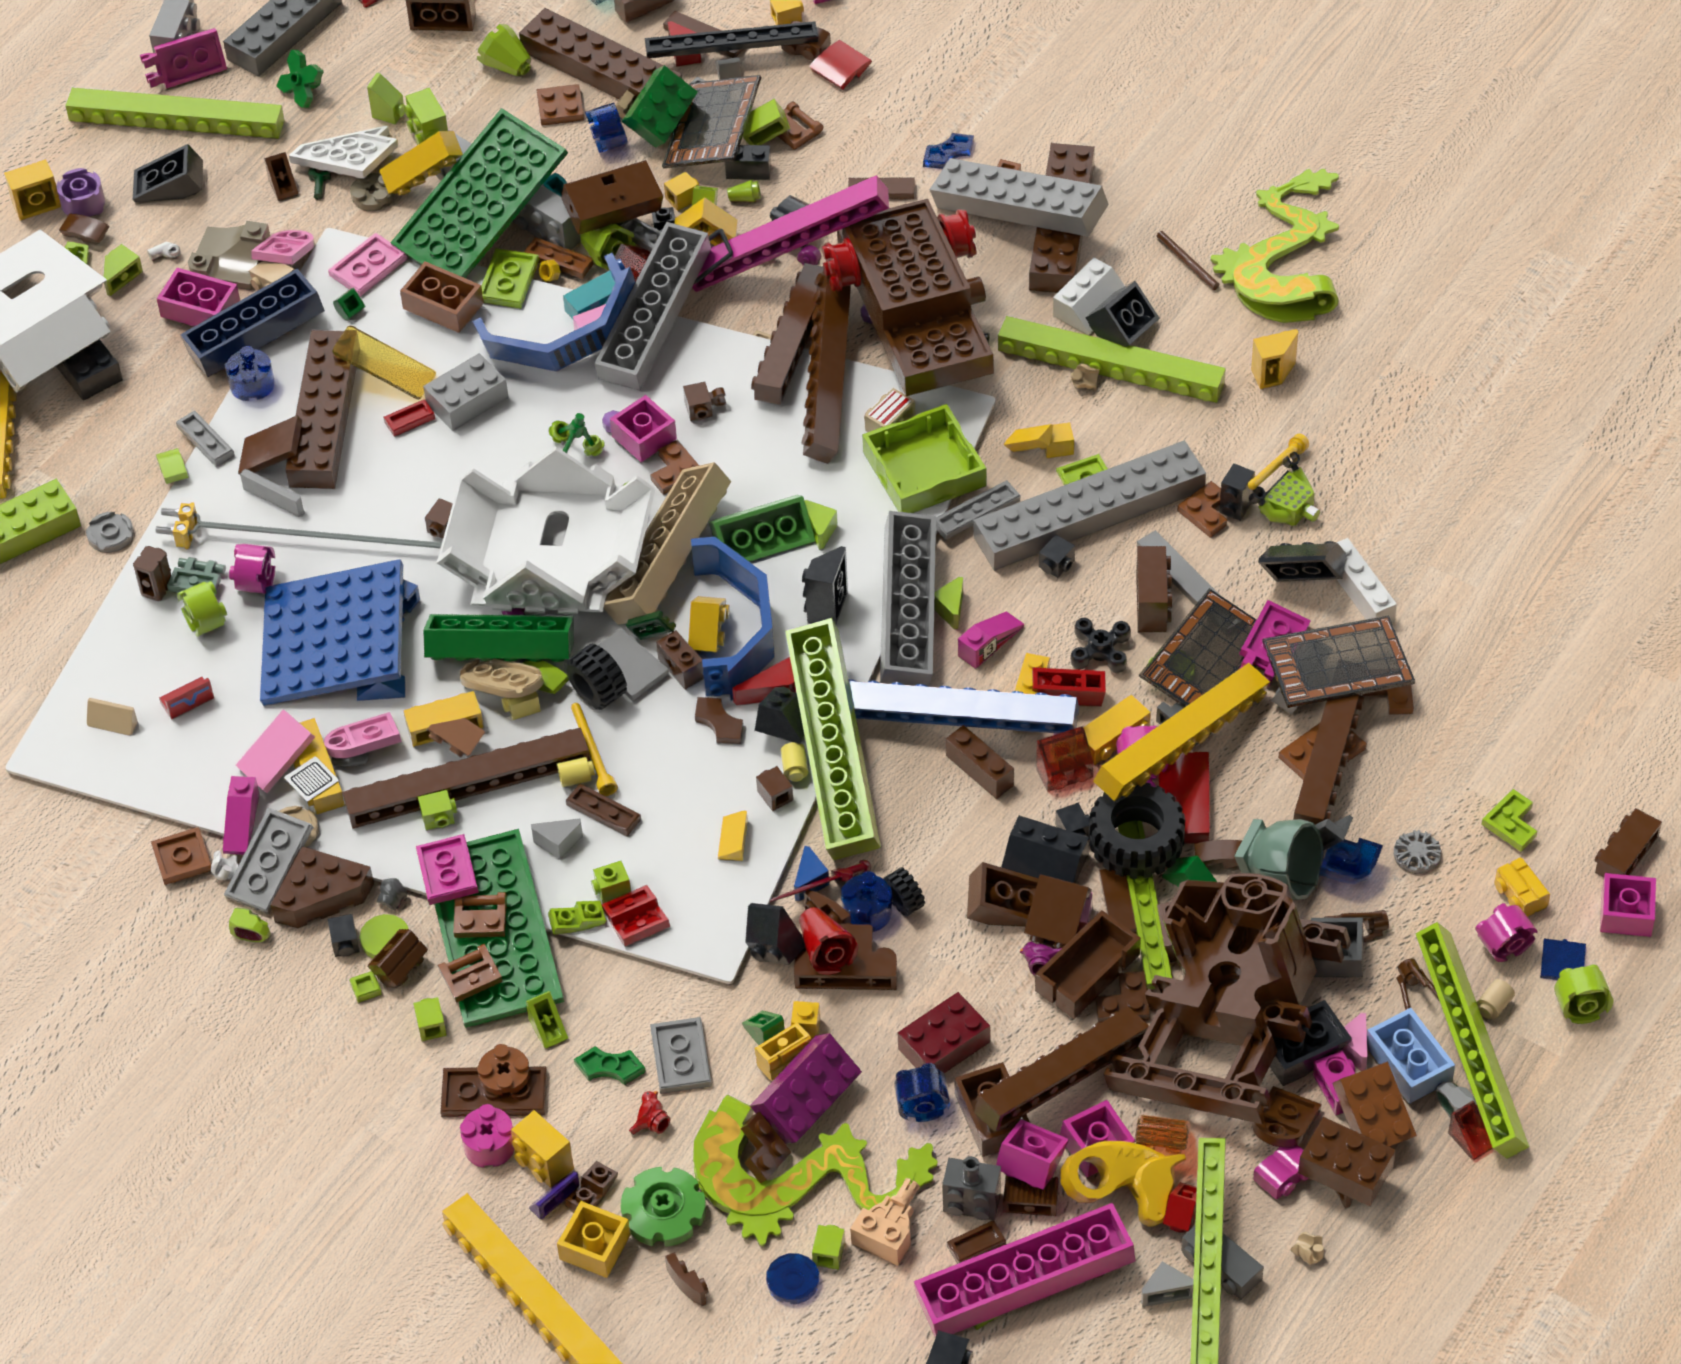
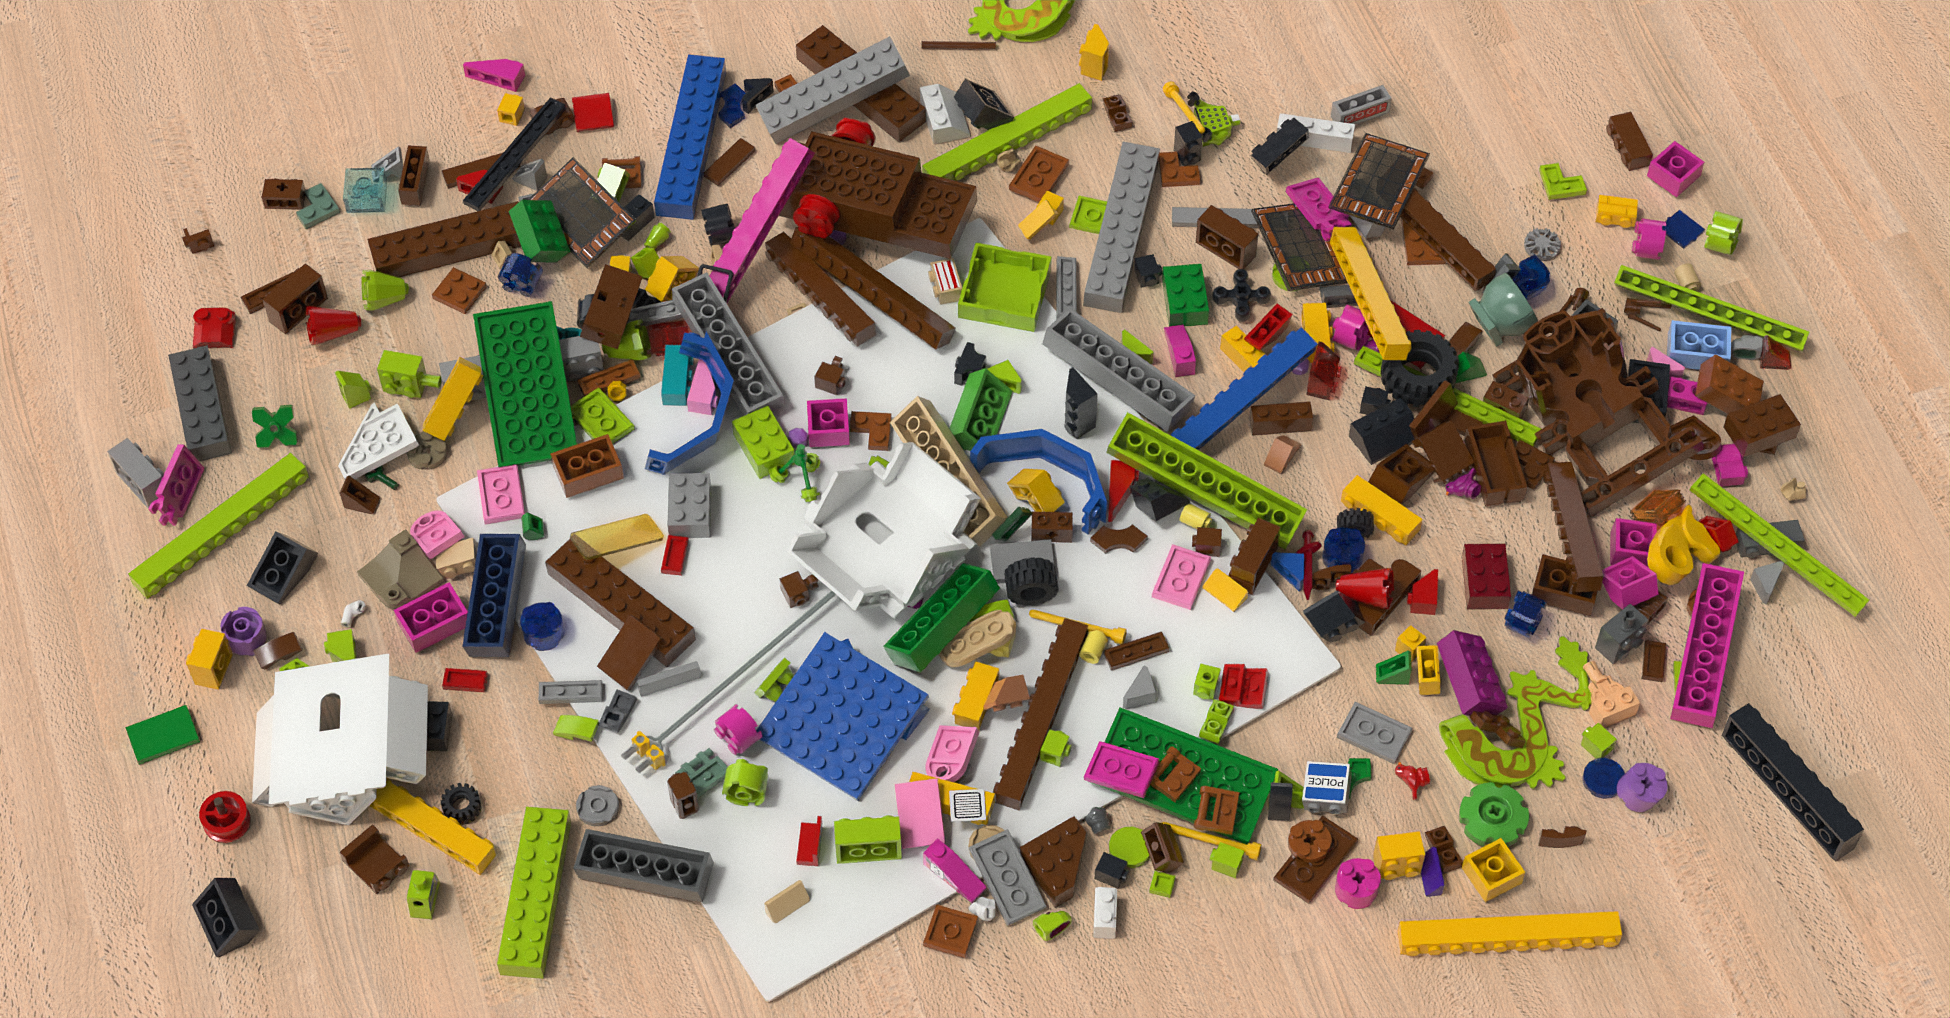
camera: 55 degrees left, 5 degrees up
(36, 449) = (458, 793): none -> black tyre
(64, 594) = (643, 865): none -> dark grey brick
(161, 365) = (464, 680): none -> red tile
(207, 483) = (618, 711): none -> black slope
(214, 728) = (867, 839): none -> lime brick
(292, 957) = (1105, 912): none -> white brick
(327, 563) = (769, 687): none -> lime tile
(437, 44) = (330, 324): none -> red cone
(458, 1033) = (1252, 849): none -> yellow piece
(521, 1017) = (1280, 801): none -> black slope
(574, 1048) = (1327, 787): none -> piece
(585, 391) = (762, 440): none -> lime brick
(719, 794) = (1181, 577): none -> bright pink tile
(783, 829) = (1254, 554): none -> reddish brown piece
(795, 1326) = (1642, 787): none -> medium lavender brick
(810, 486) = (968, 363): none -> black brick
(878, 142) = (690, 137): none -> blue brick
(878, 999) = (1424, 594): none -> red slope
(944, 787) = (1281, 453): none -> nougat slope
(946, 906) = (1387, 512): none -> yellow brick
(981, 153) = (756, 92): none -> black slope
(1055, 601) = (1185, 295): none -> green brick
(1092, 408) = (1038, 173): none -> dark orange plate
(1102, 871) = (1434, 411): none -> reddish brown tile
(1230, 422) = (1117, 113): none -> reddish brown slope
(1430, 599) = (1362, 106): none -> light grey brick

